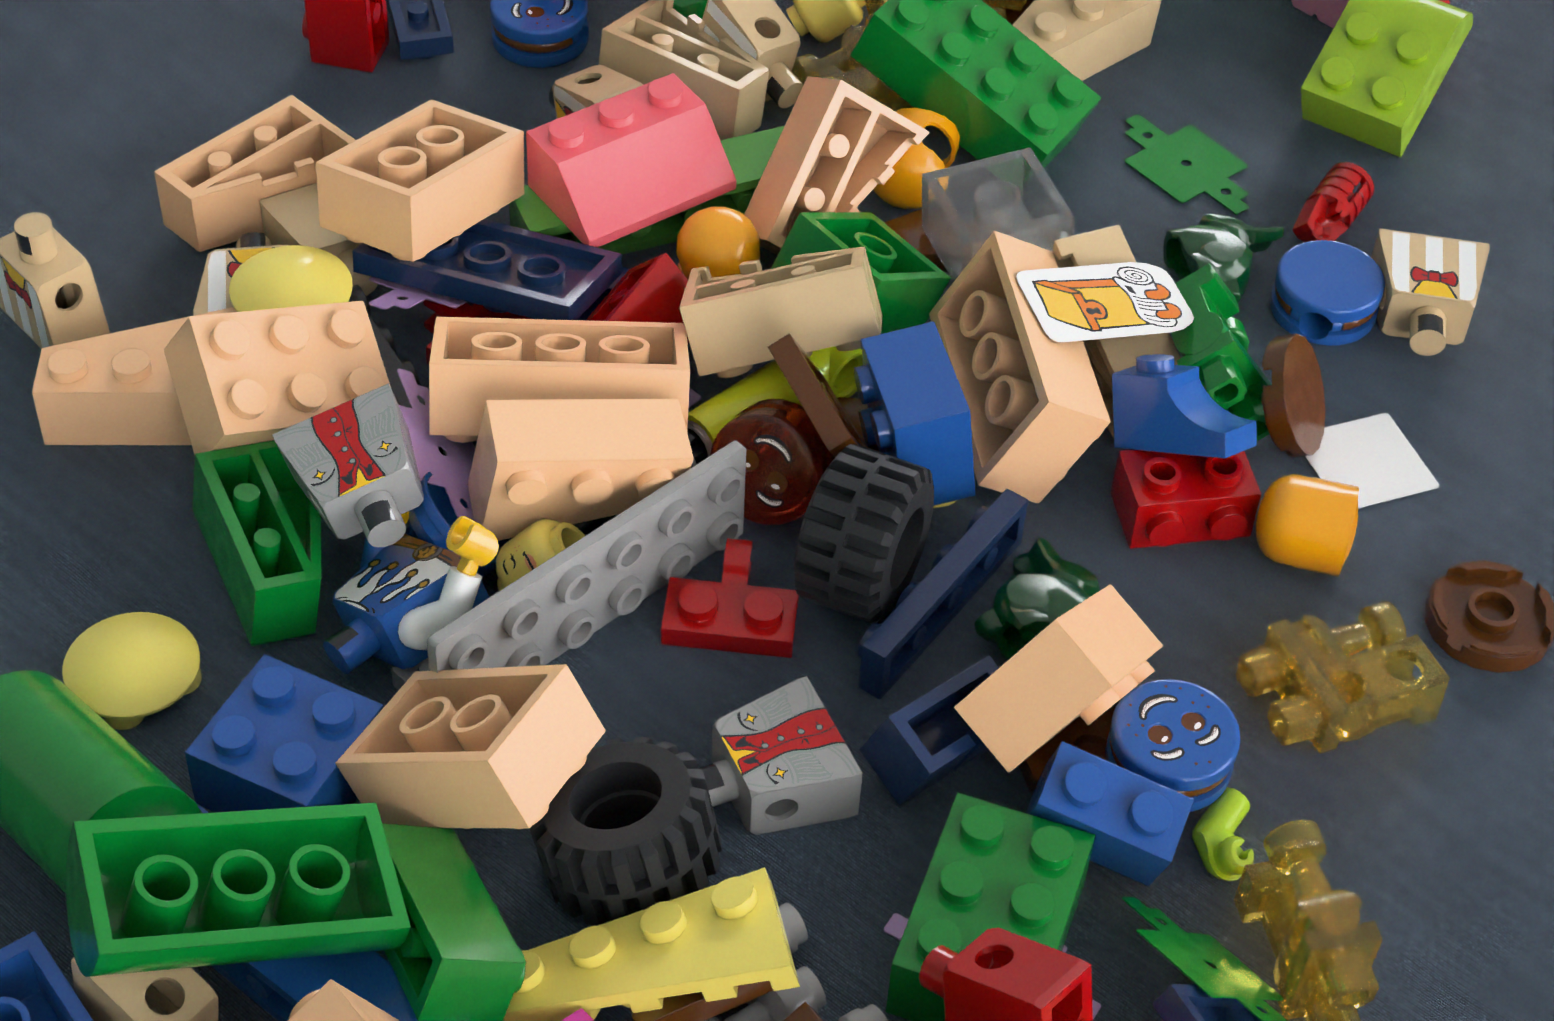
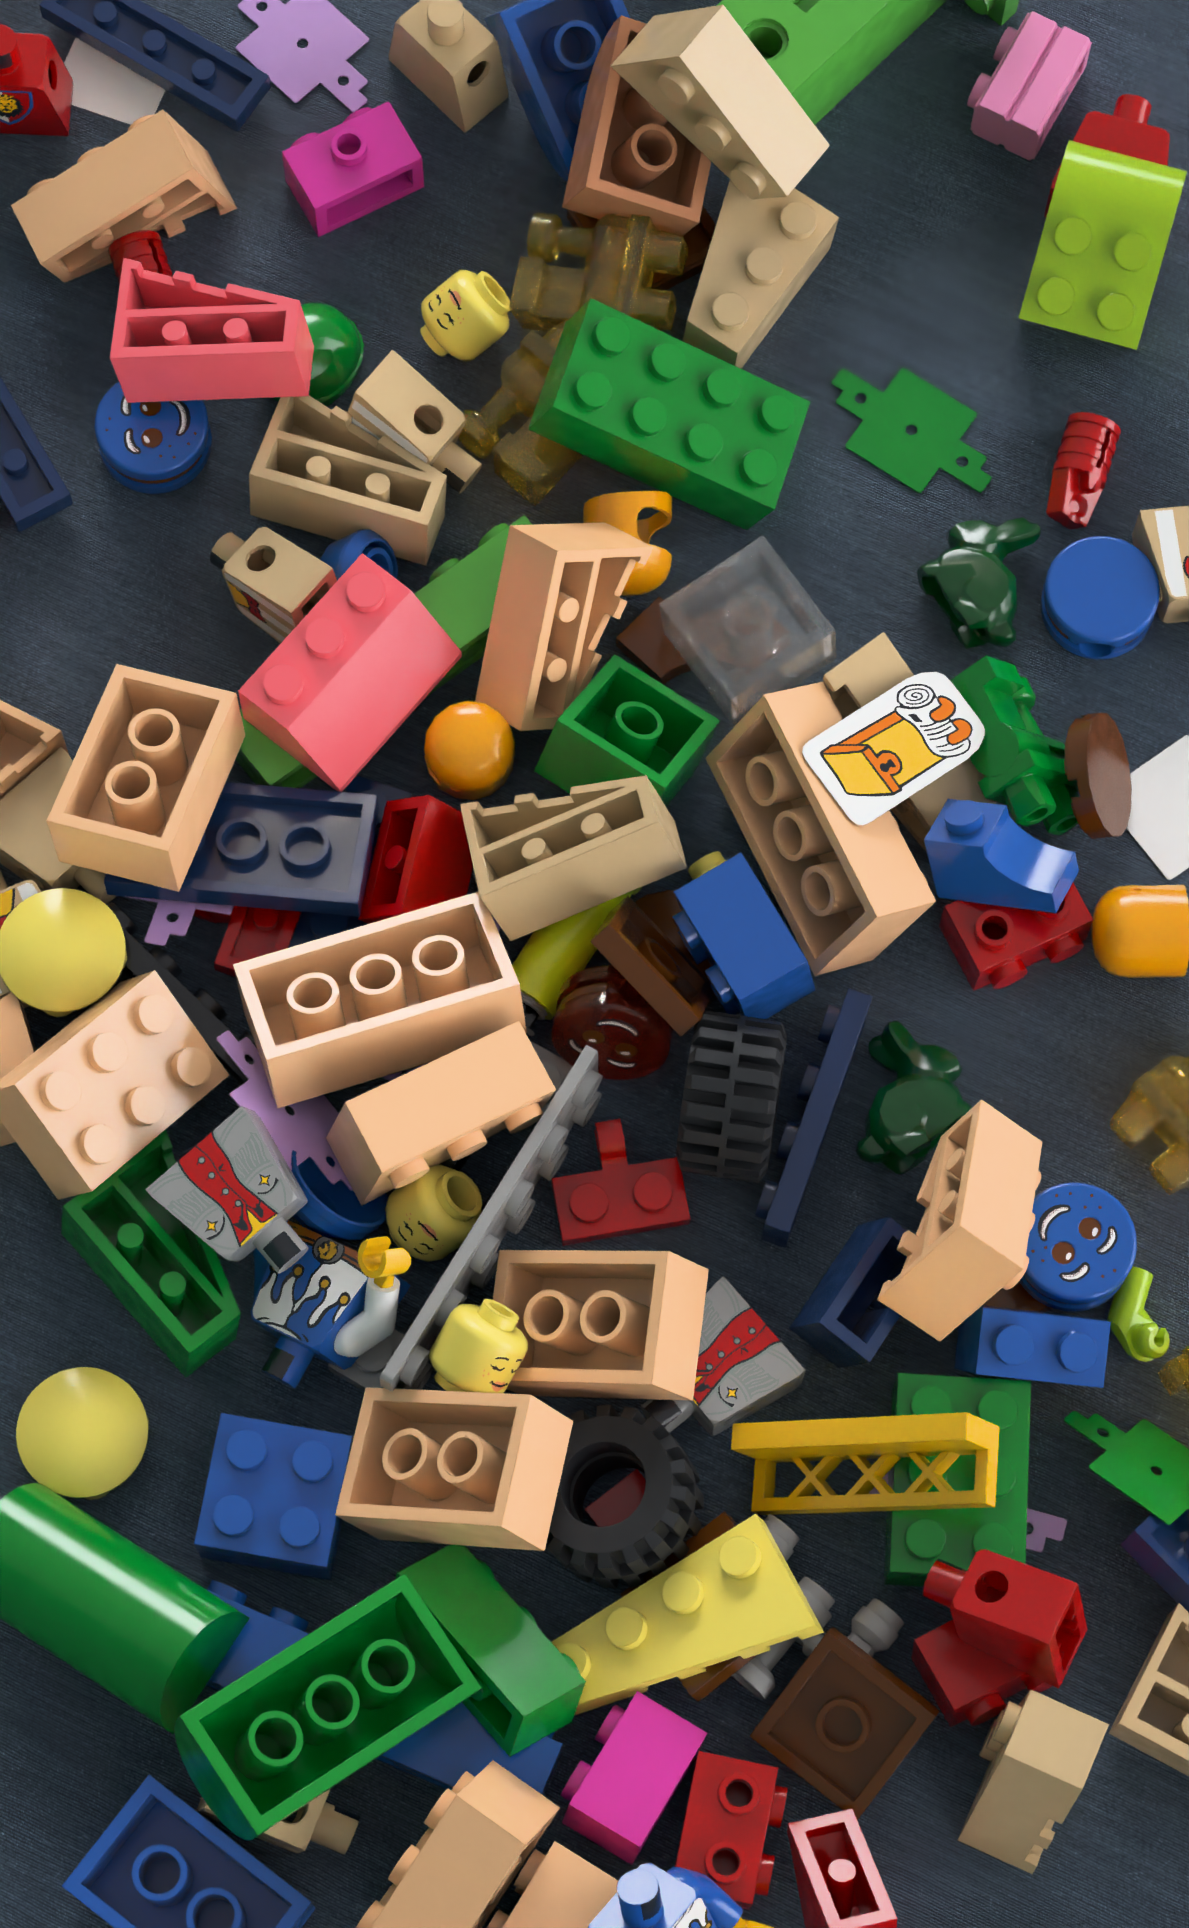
camera: 15 degrees left, 25 degrees up
(538, 640) = (478, 1348): none -> light yellow head
(676, 665) = (604, 1322): none -> light nougat brick
(911, 834) = (870, 1438): none -> yellow fence

